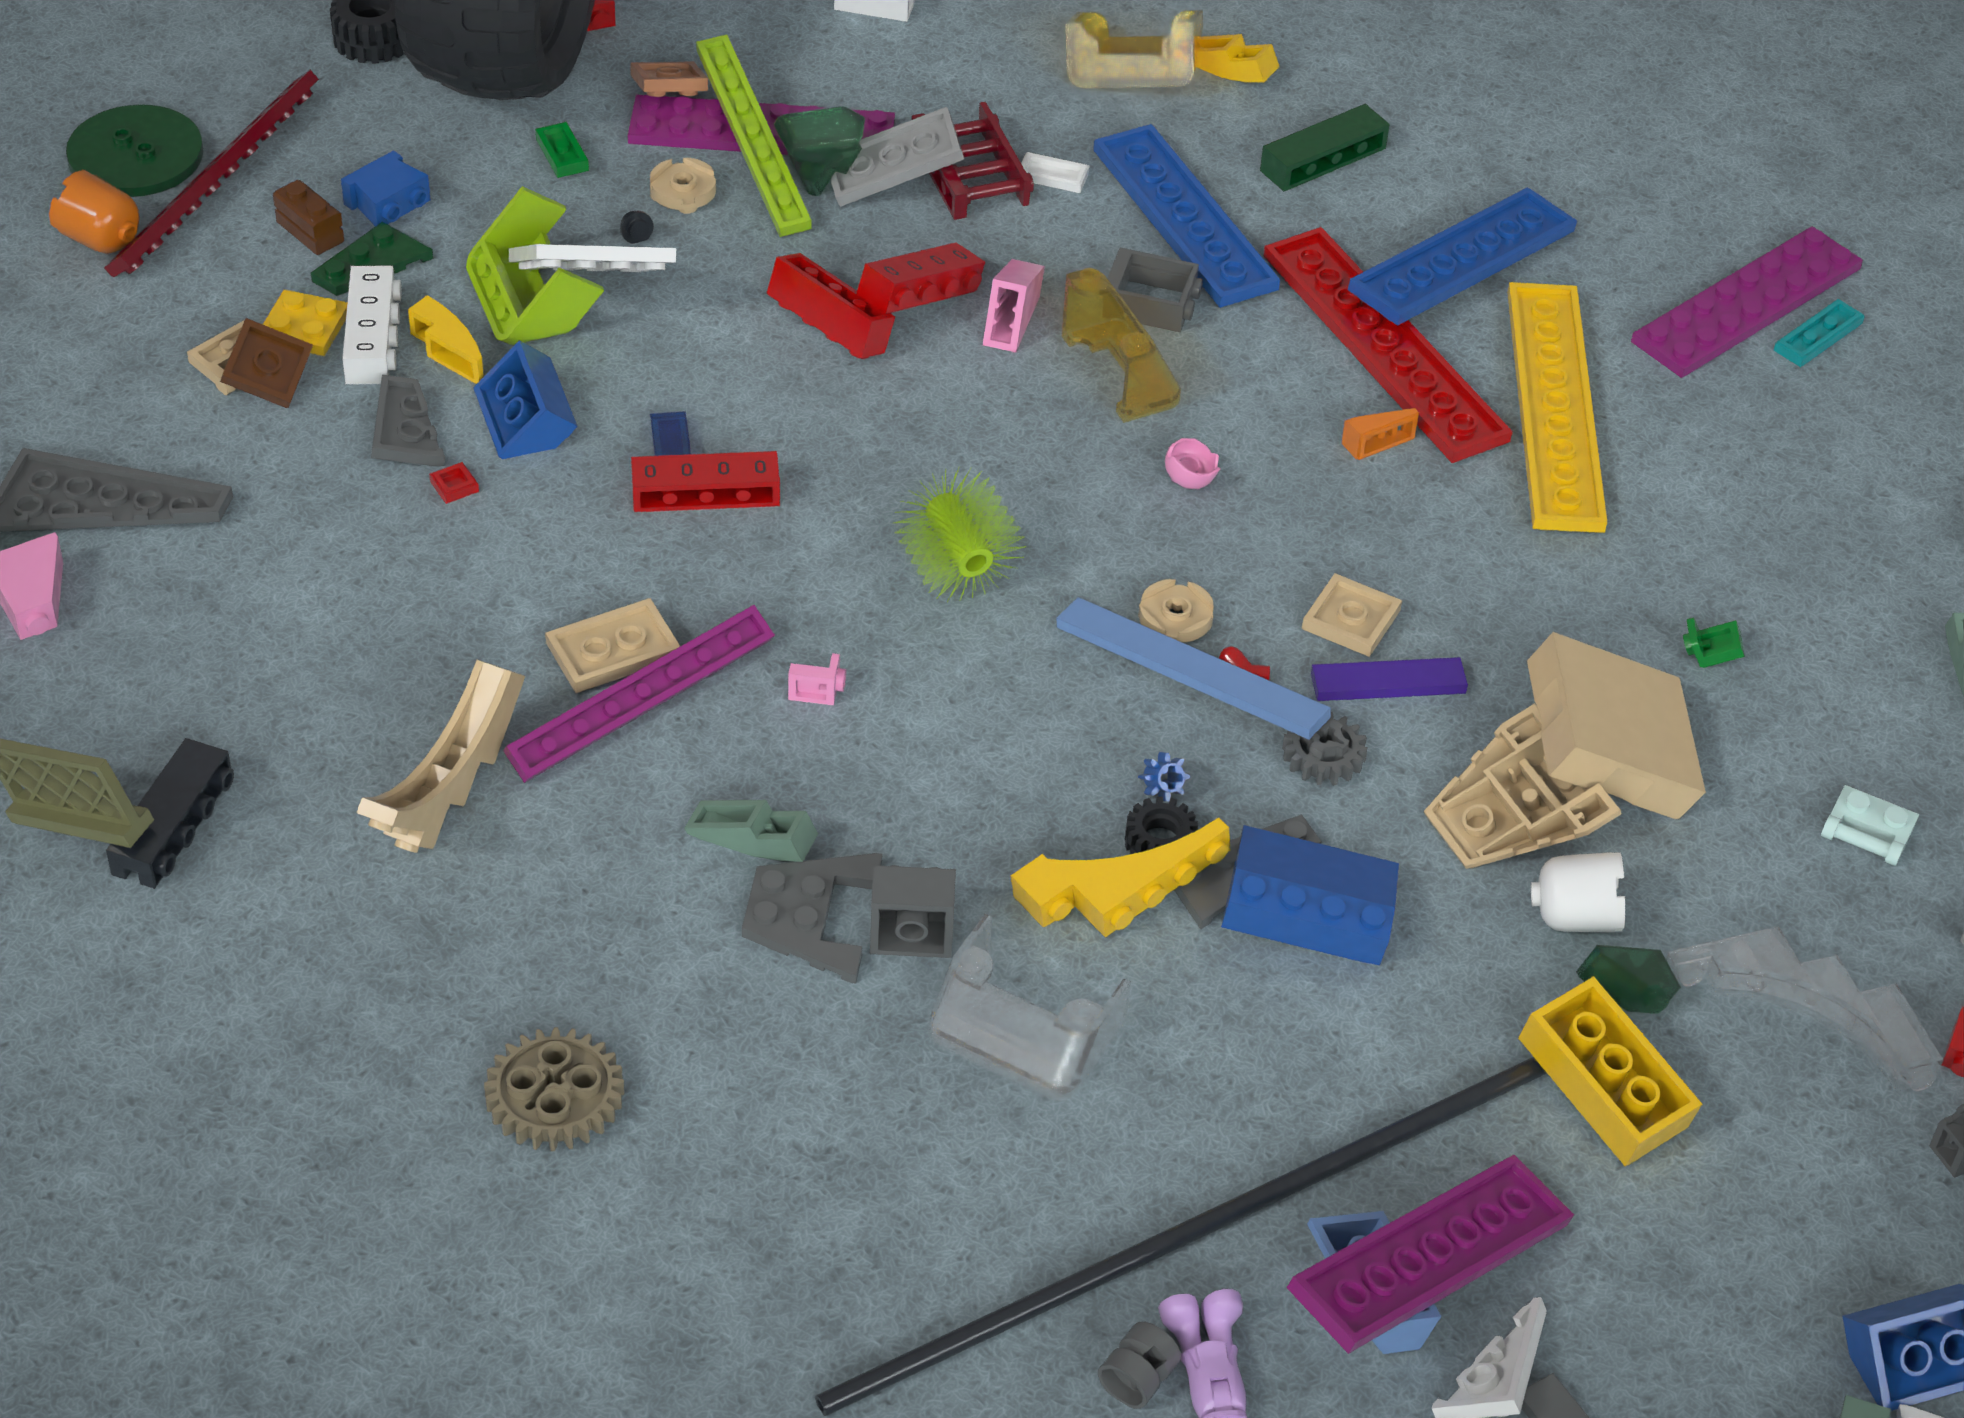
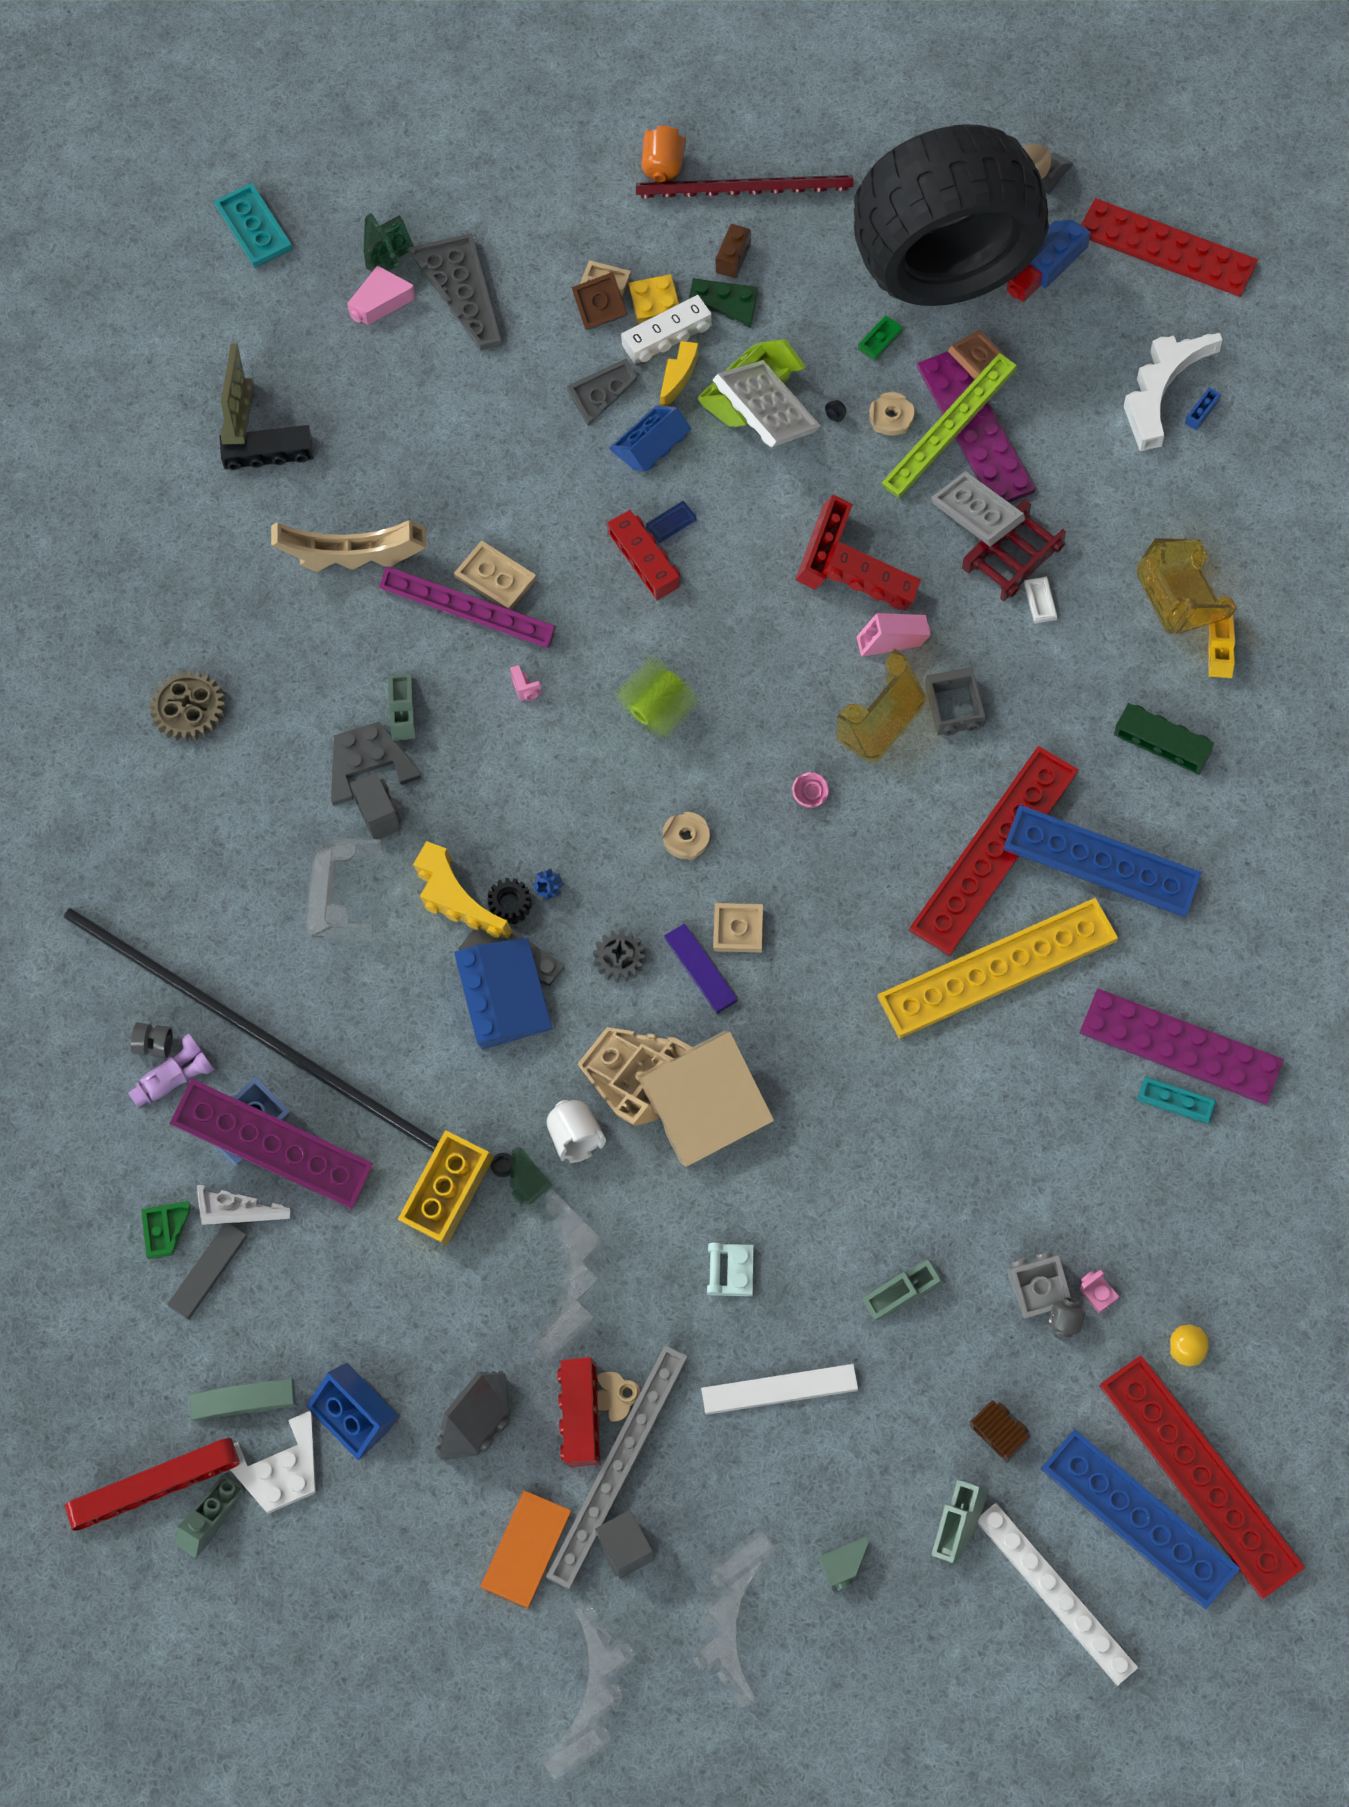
camera: 70 degrees right, 20 degrees up
(137, 148) = (742, 137): dark green plate -> none
(385, 189) = (783, 273): blue hips -> none
(454, 482) = (575, 437): red tile -> none
(821, 143) = (957, 462): clear green piece -> none
(1186, 215) = (1044, 689): blue plate -> none
(1194, 668) = (637, 863): medium blue tile -> none
(1236, 657) = (660, 889): red arm -> none
(1368, 434) = (902, 878): orange slope -> none
(1714, 643) = (829, 1131): green bracket -> none

